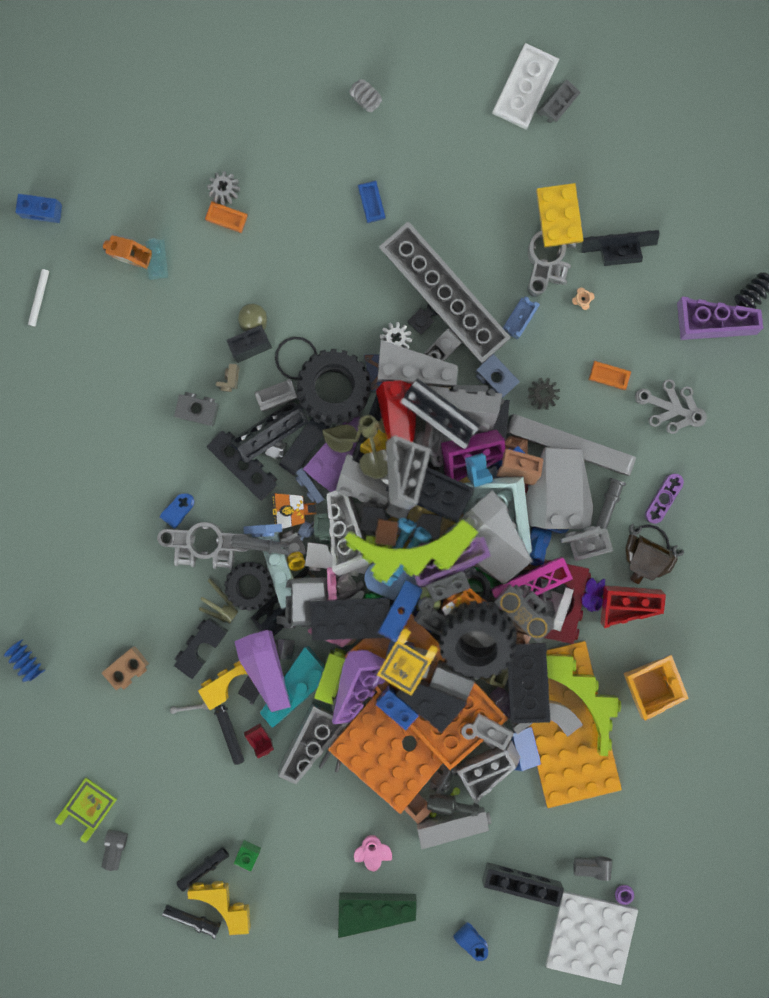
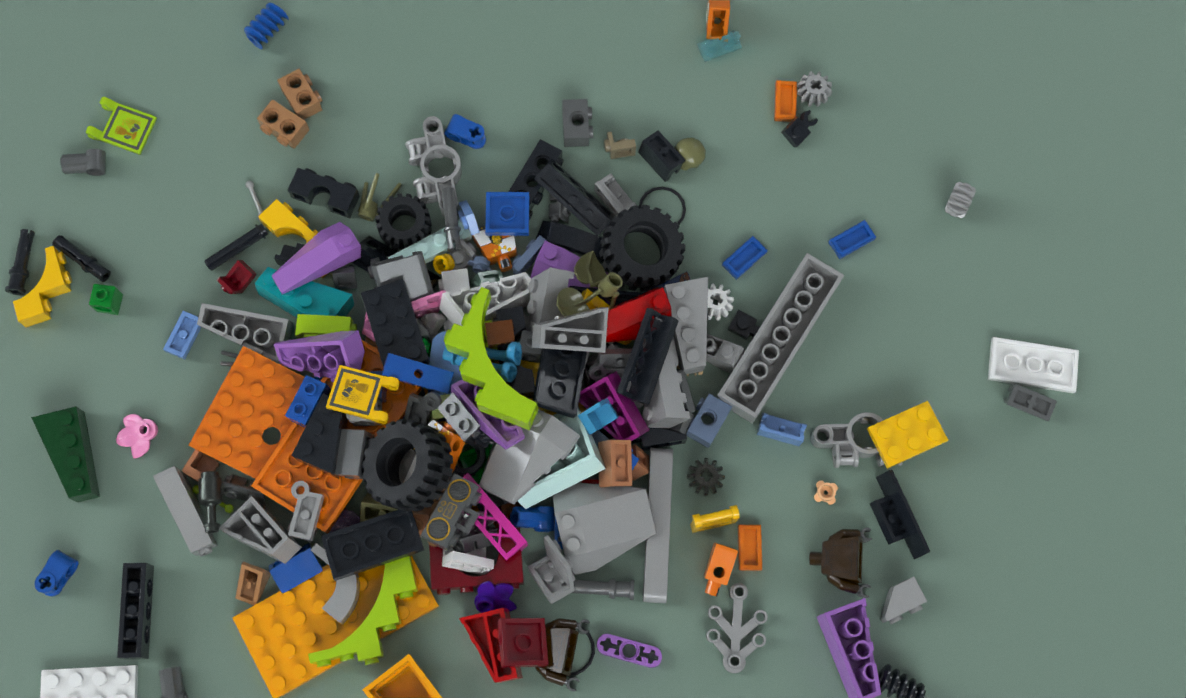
camera: 70 degrees right, 15 degrees down
(102, 650) = (298, 95): none -> medium nougat brick
(257, 215) = (798, 129): none -> black plate
(270, 495) = (507, 214): none -> blue plate
(297, 797) = (183, 335): none -> medium blue plate
(361, 300) = (744, 257): none -> blue tile
(524, 786) = (251, 583): none -> medium nougat slope
(581, 391) = (715, 519): none -> yellow plate
(620, 405) = (720, 557): none -> orange torso
(641, 583) = (522, 642): none -> dark red hinge
(644, 303) = (842, 560): none -> dark brown torso
(688, 266) = (902, 598): none -> light grey slope

